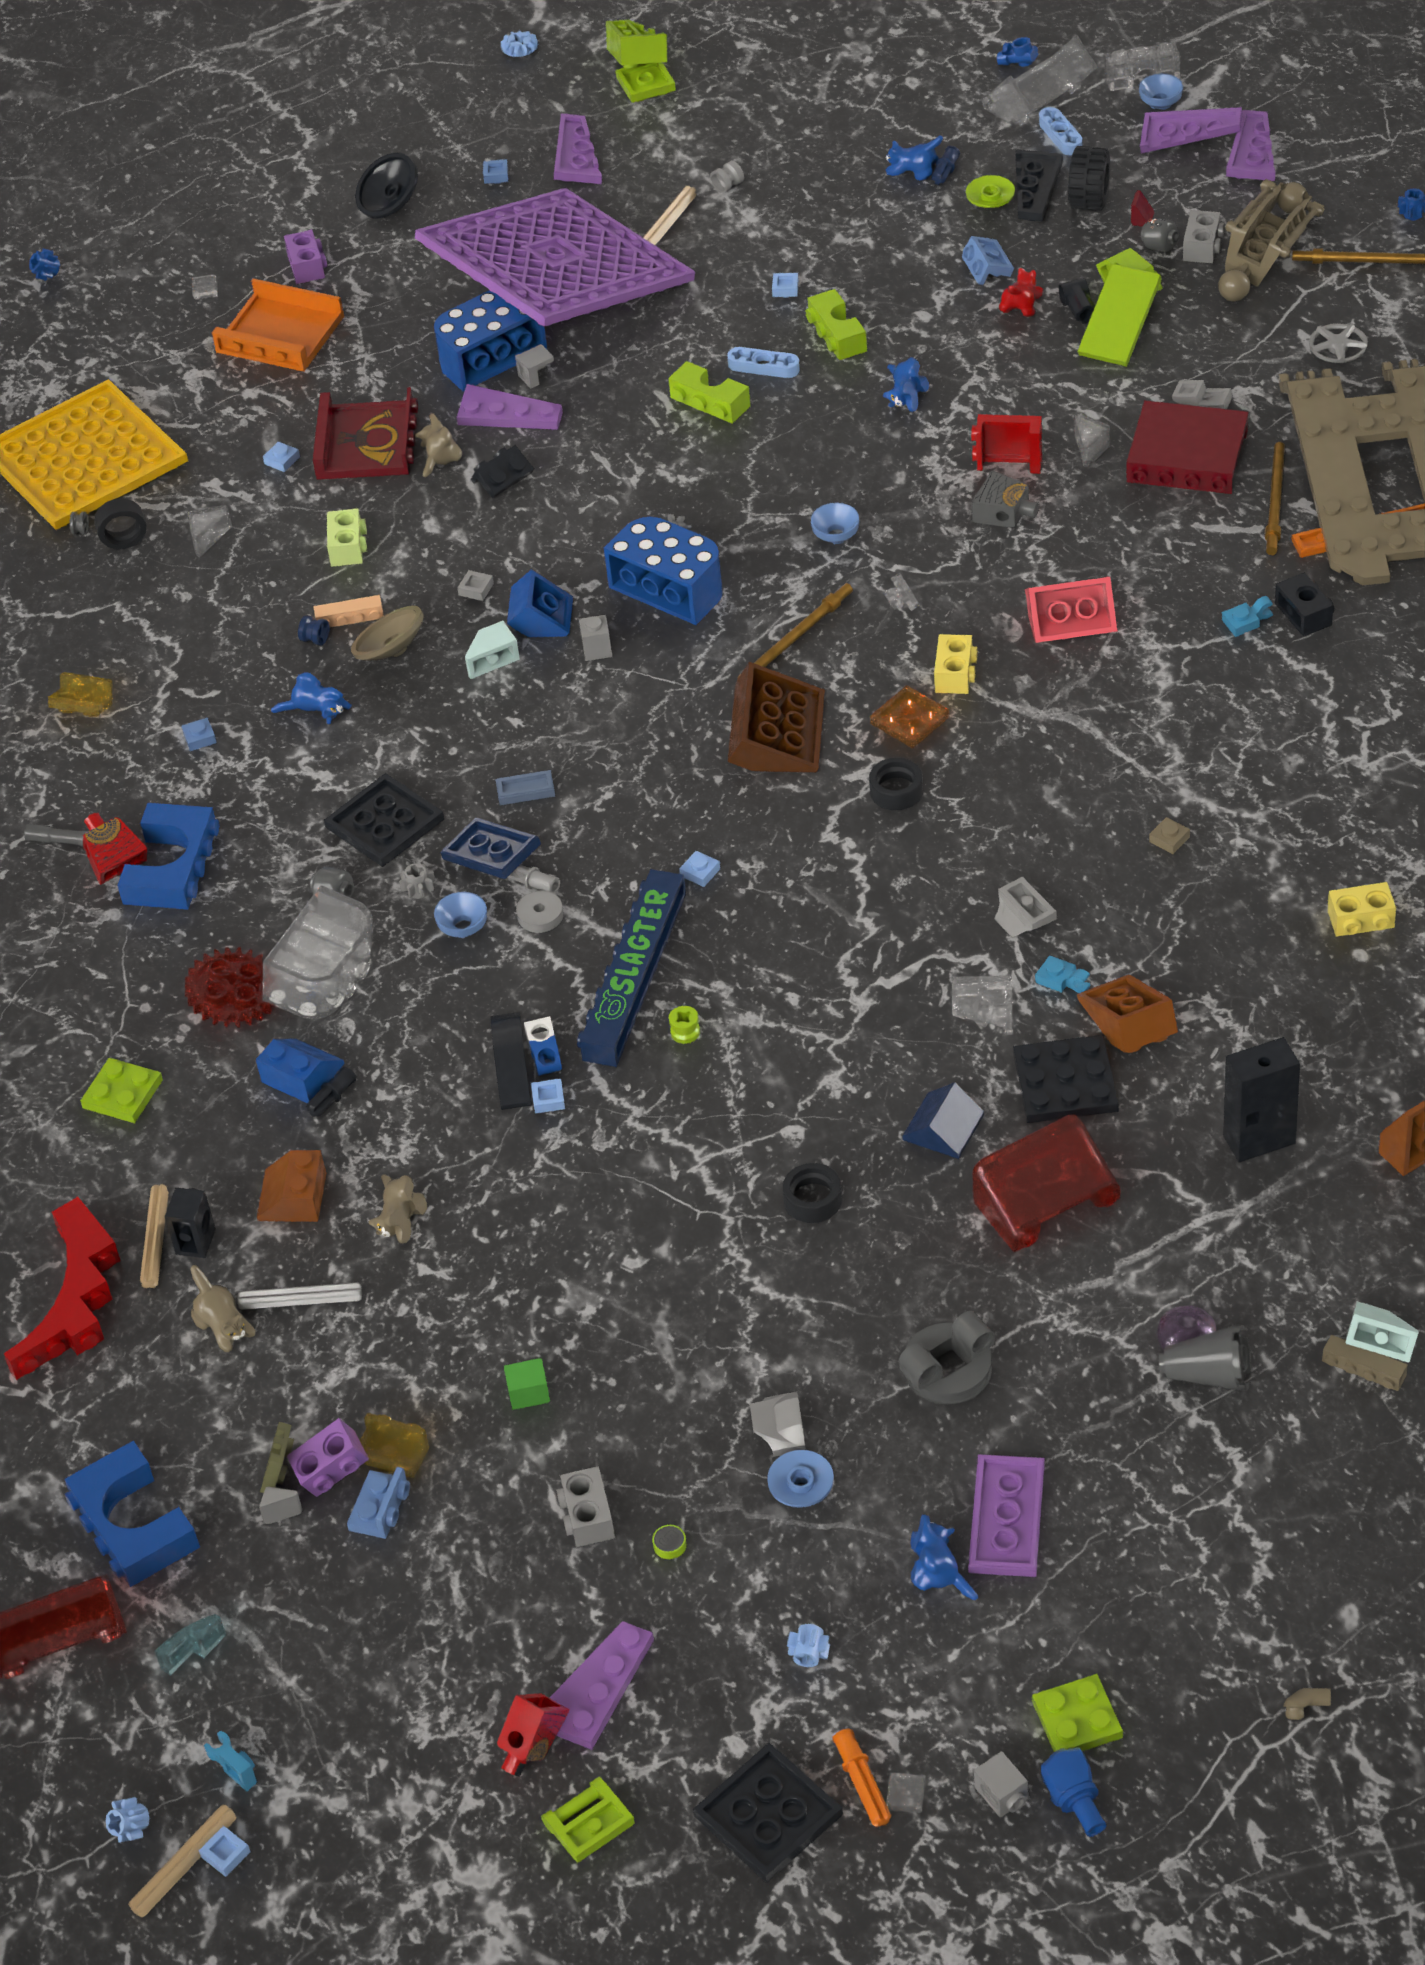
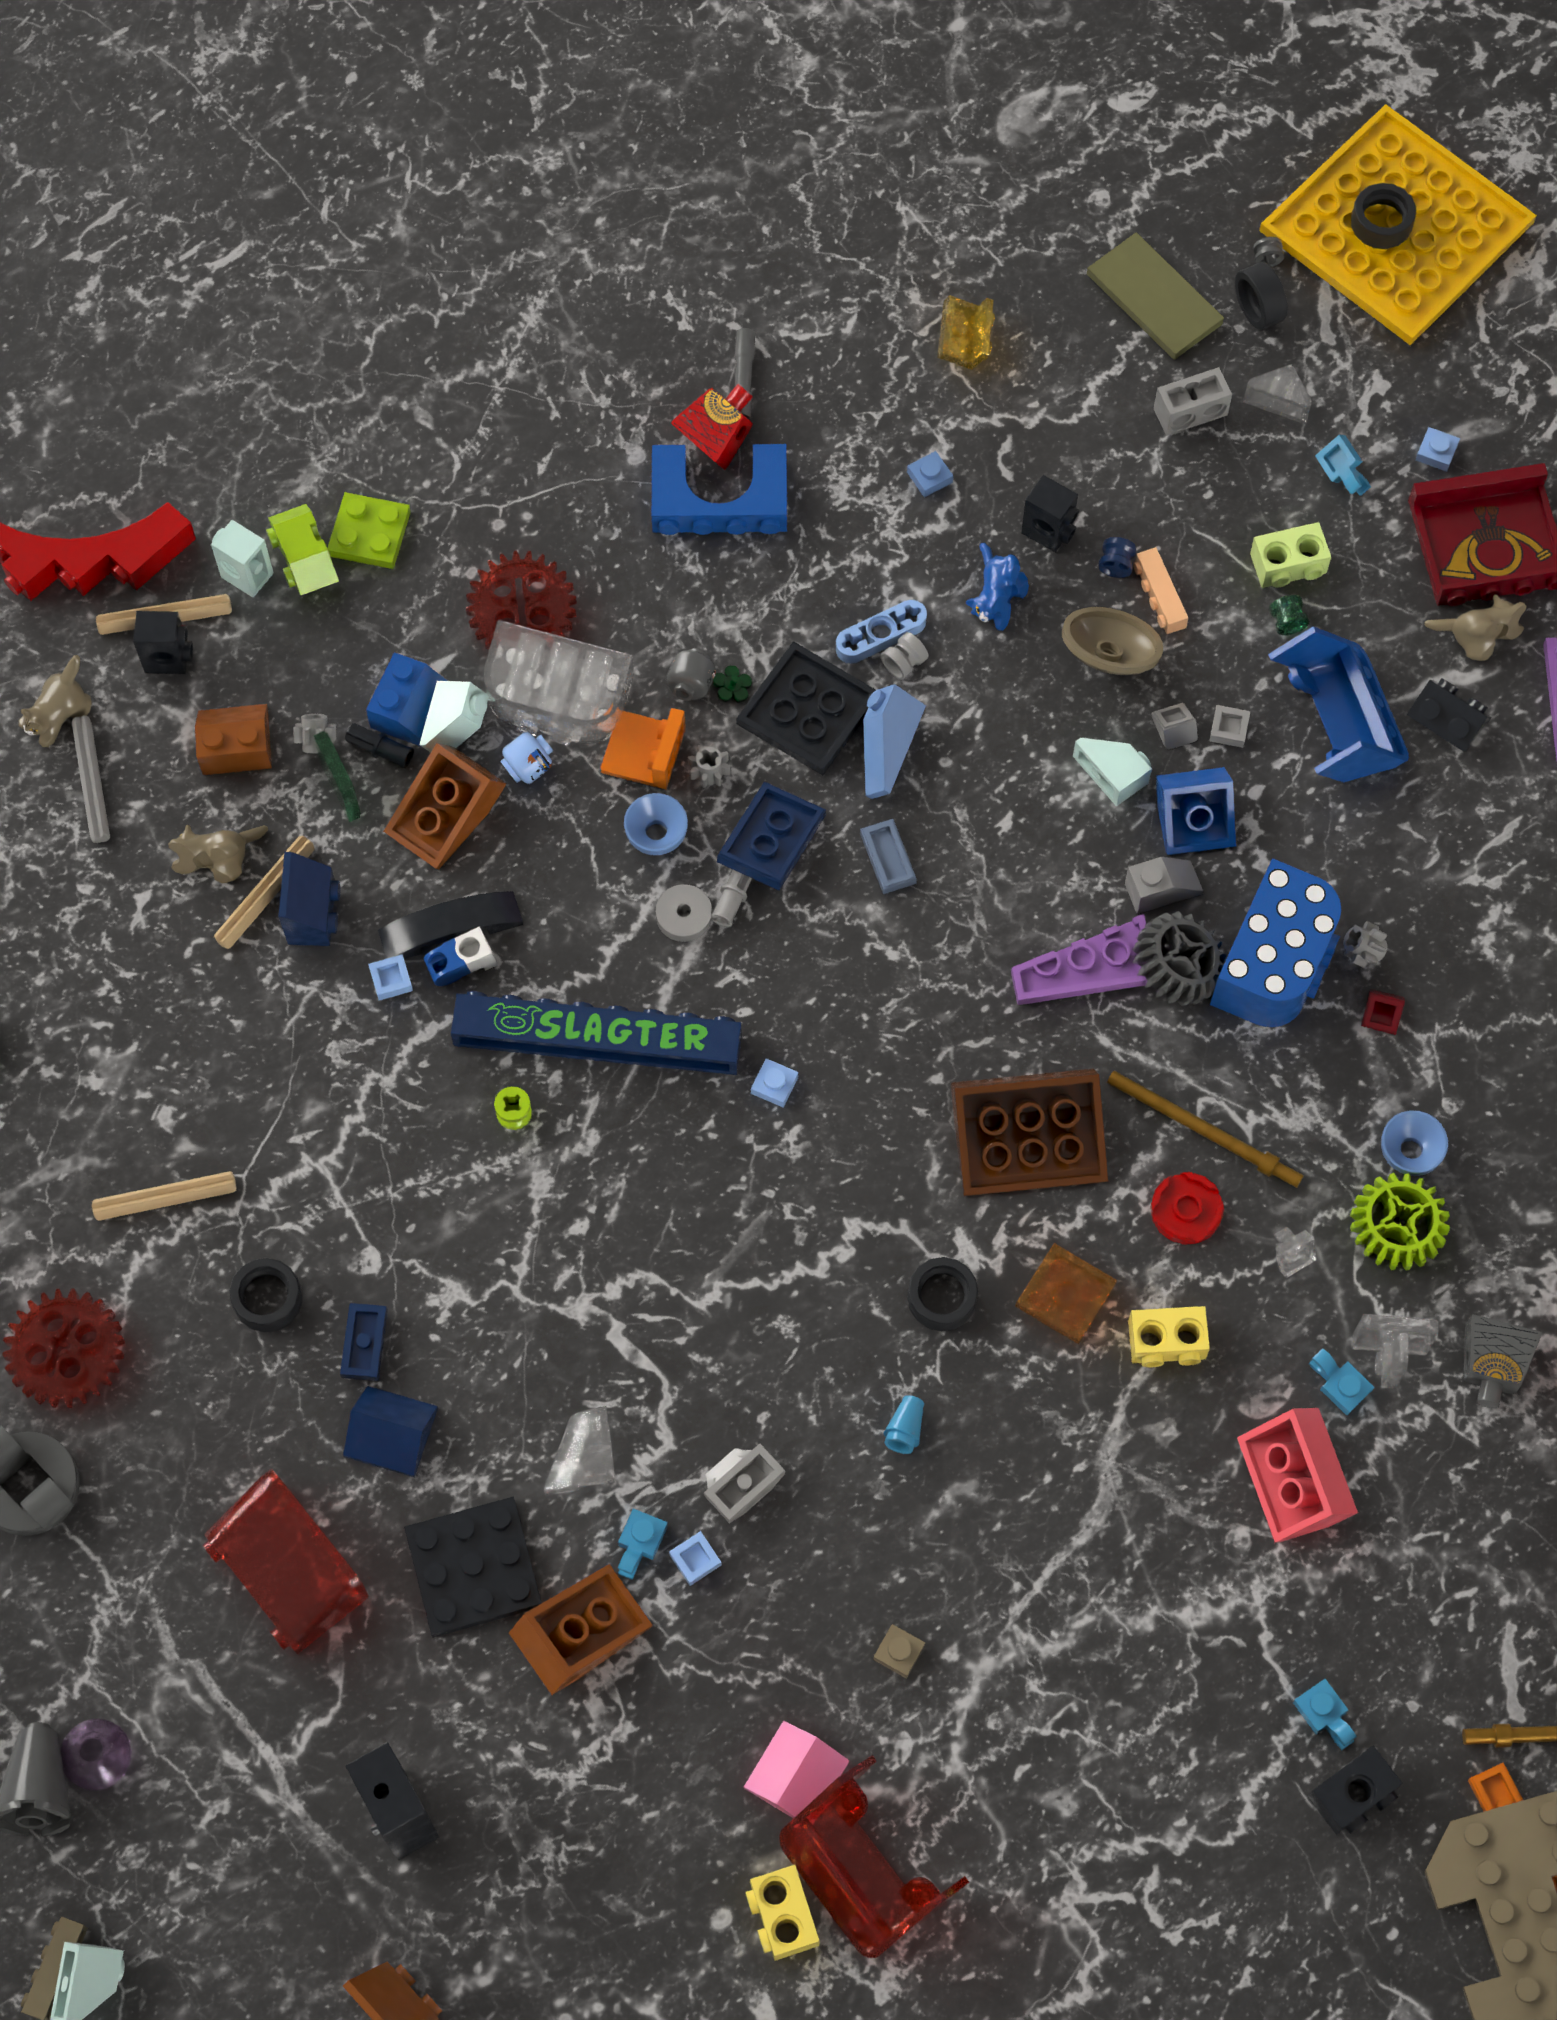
camera: 75 degrees right, 20 degrees up
(82, 462) = (1385, 195): none -> black tyre
(89, 592) = (1155, 296): none -> olive tile
(126, 1162) = (242, 558): none -> light aqua brick
(142, 1120) = (303, 550): none -> lime brick
(196, 571) = (1192, 401): none -> light grey brick
(267, 655) = (1050, 514): none -> black brick
(275, 503) = (1340, 463): none -> dark azure plate
(308, 1129) = (309, 726): none -> light grey gear
(322, 1029) = (453, 714): none -> light aqua slope
(331, 764) = (855, 633): none -> light blue beam
(346, 864) = (731, 684): none -> dark green plant
(357, 757) = (904, 656): none -> light grey wheel
(358, 1108) = (337, 775): none -> clear green tile
(375, 992) = (527, 757): none -> light blue head
(394, 543) = (1289, 615): none -> clear green wheel
(395, 913) = (645, 748): none -> orange bracket
(401, 1048) = (444, 805): none -> dark orange slope
(430, 770) = (887, 736): none -> medium blue slope
(445, 1178) = (259, 897): none -> tan axle
(463, 617) = (1175, 726): none -> light grey slope
(466, 1142) = (308, 901): none -> dark blue slope
(484, 520) = (1348, 702): none -> blue windscreen
(650, 679) = (1083, 968): none -> medium lavender wing
(661, 622) = (1179, 958): none -> dark grey gear
(707, 1261) = (164, 1195): none -> tan axle
(726, 533) = (1383, 1011): none -> dark red slope
(825, 1324) = (94, 1358): none -> clear red gear
(855, 650) = (1187, 1208): none -> red tile
(865, 1131) = (363, 1342): none -> dark blue plate
(891, 538) = (1410, 1247): none -> lime gear
(989, 543) = (1395, 1340): none -> clear bracket
(999, 813) = (905, 1426): none -> dark azure cone
(1006, 583) = (1344, 1385): none -> dark azure plate
(1081, 941) = (695, 1558): none -> light blue plate
(1254, 901) = (795, 1770): none -> bright pink slope
(1366, 859) = (852, 1873): none -> clear red windscreen

